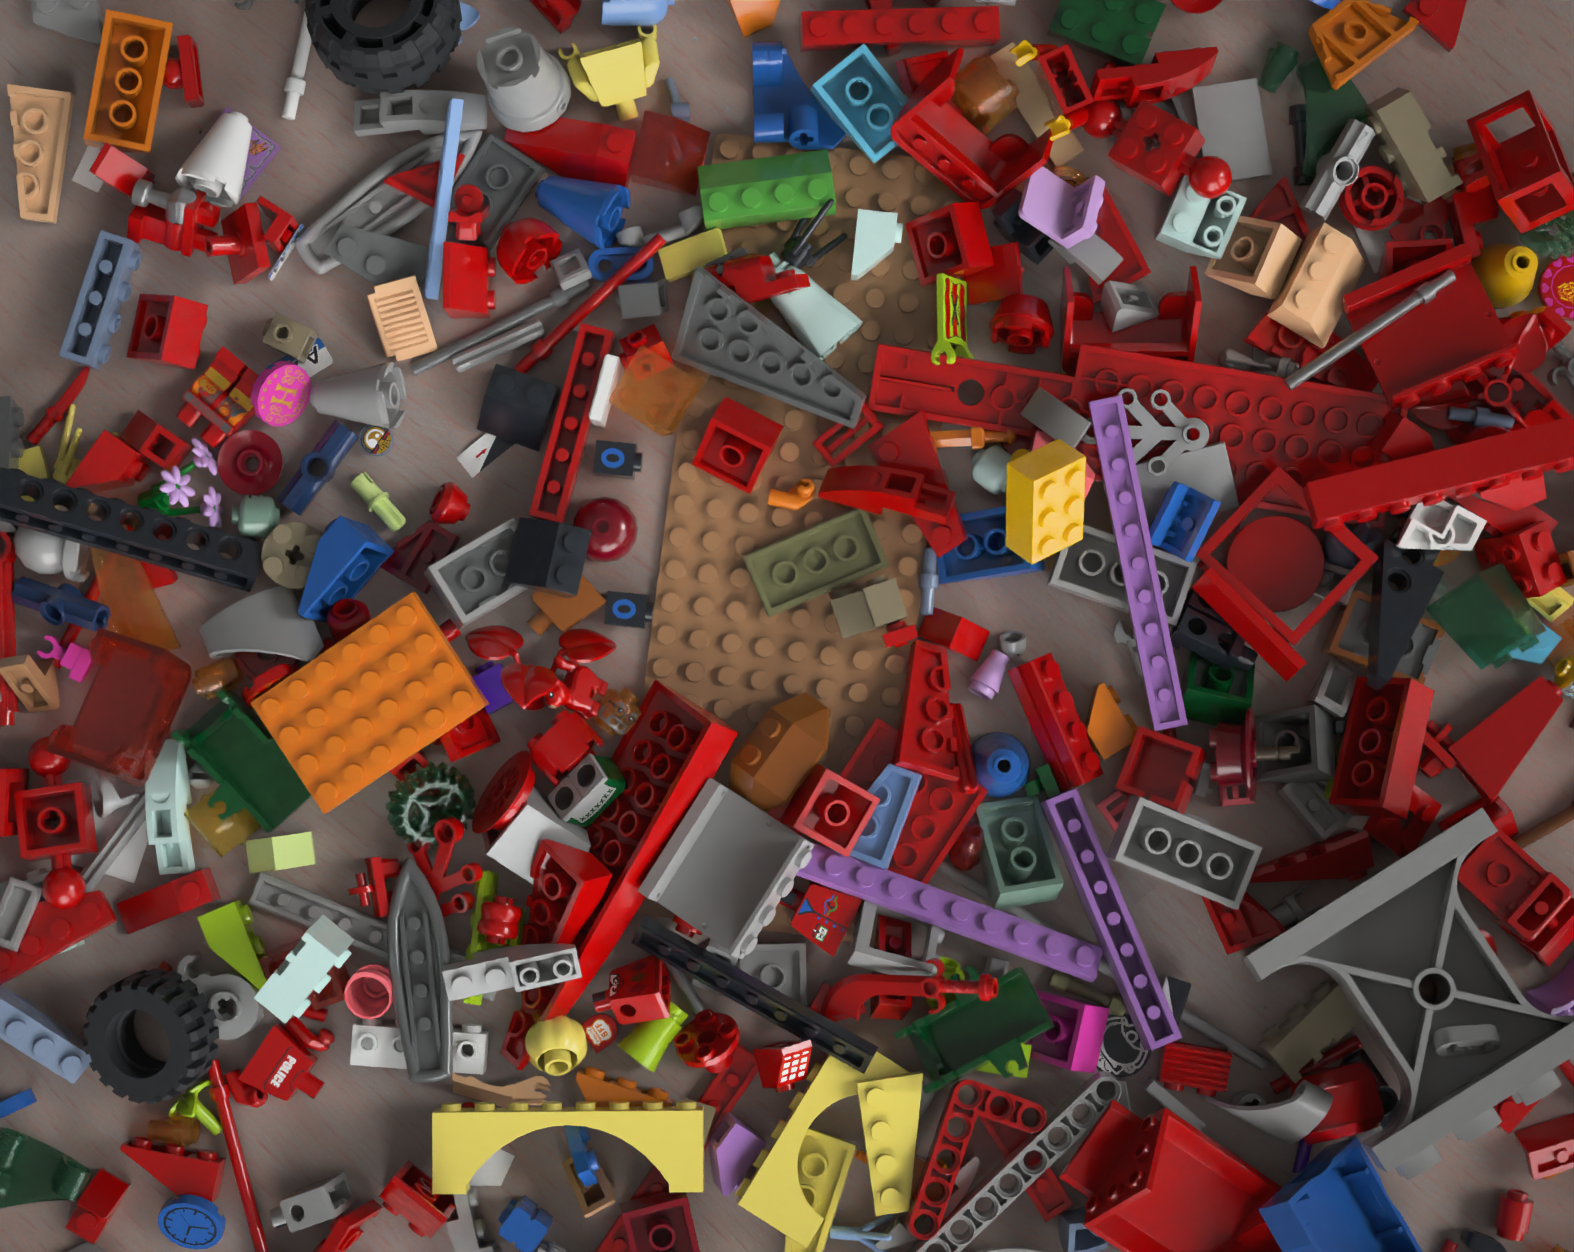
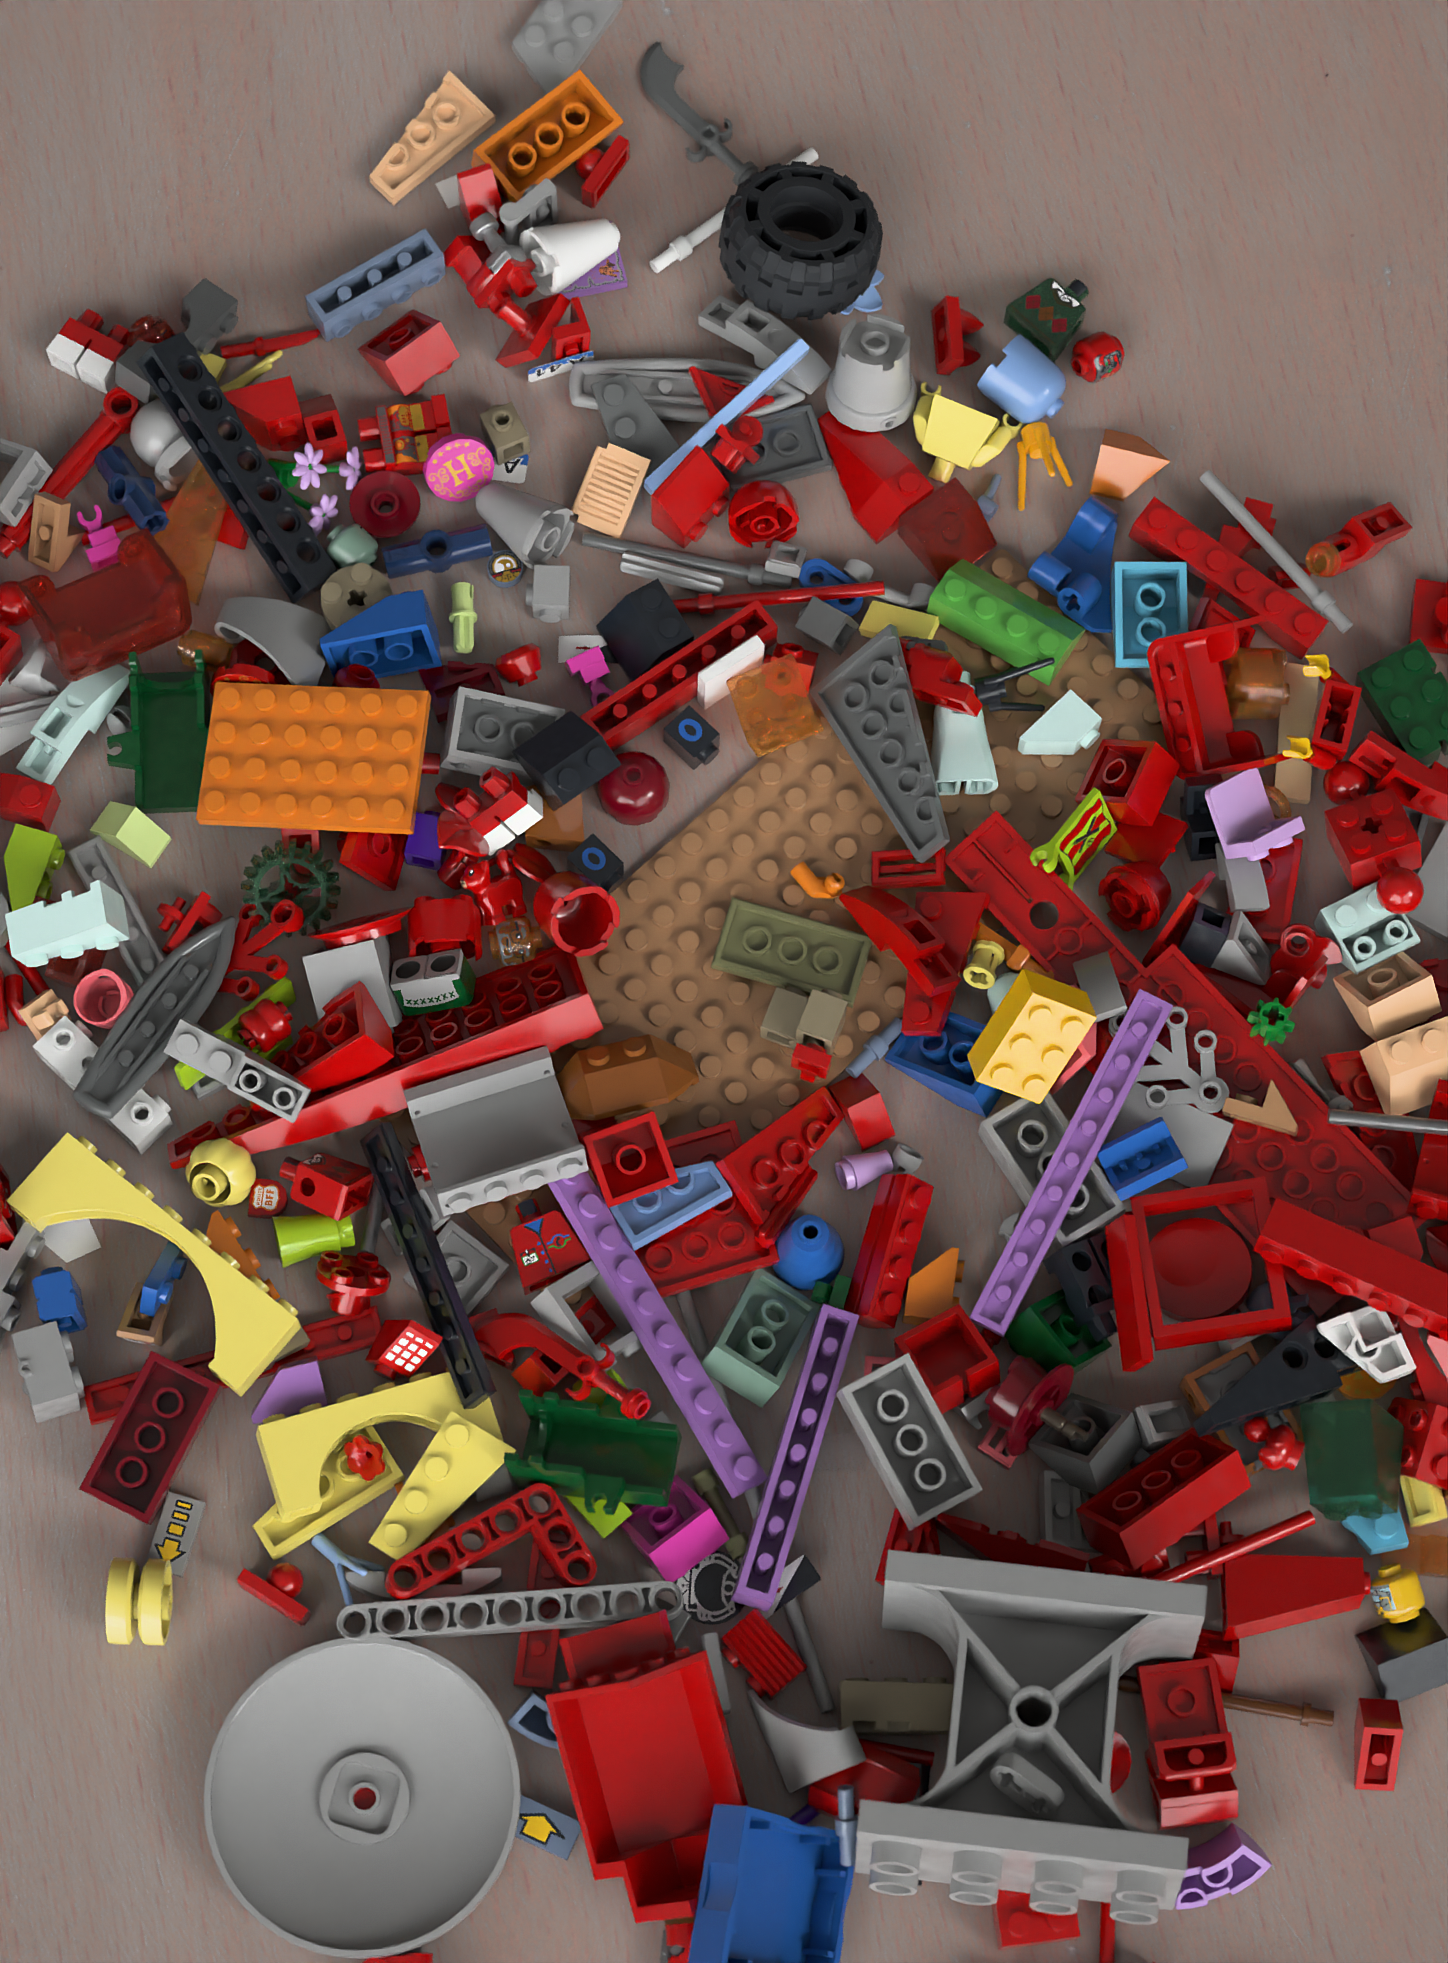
camera: 35 degrees right, 15 degrees down
(167, 155) = (534, 209): none -> light grey plate
(220, 834) = (95, 773): clear yellow piece -> none
(335, 1032) = (43, 1012): none -> light nougat tile
(425, 433) = (550, 593): none -> light grey brick
(501, 1096) = (117, 1150): light nougat arm -> none
(504, 467) = (590, 668): none -> dark pink piece
(531, 632) = (500, 809): none -> red hips
(585, 206) = (842, 519): blue cone -> none
(646, 662) = (575, 913): none -> red cylinder
(680, 30) = (1039, 444): none -> light orange plant
(737, 444) = (805, 802): red slope -> none
(822, 1157) = (364, 1457): none -> red plant
(957, 462) = (984, 964): none -> light yellow bush
(967, 848) = (718, 1298): clear red cone -> none
(1094, 316) = (1204, 934): none -> black brick
(1173, 271) = (1302, 956): none -> red plate
(1192, 357) = (1273, 1011): none -> green gear
(1248, 417) = (1272, 1115): none -> medium nougat slope
(1348, 1142) = (846, 1825): none -> sand blue bar
(1416, 820) = (1236, 1548): none -> red bar
(1434, 649) = (1280, 1445): none -> red animal

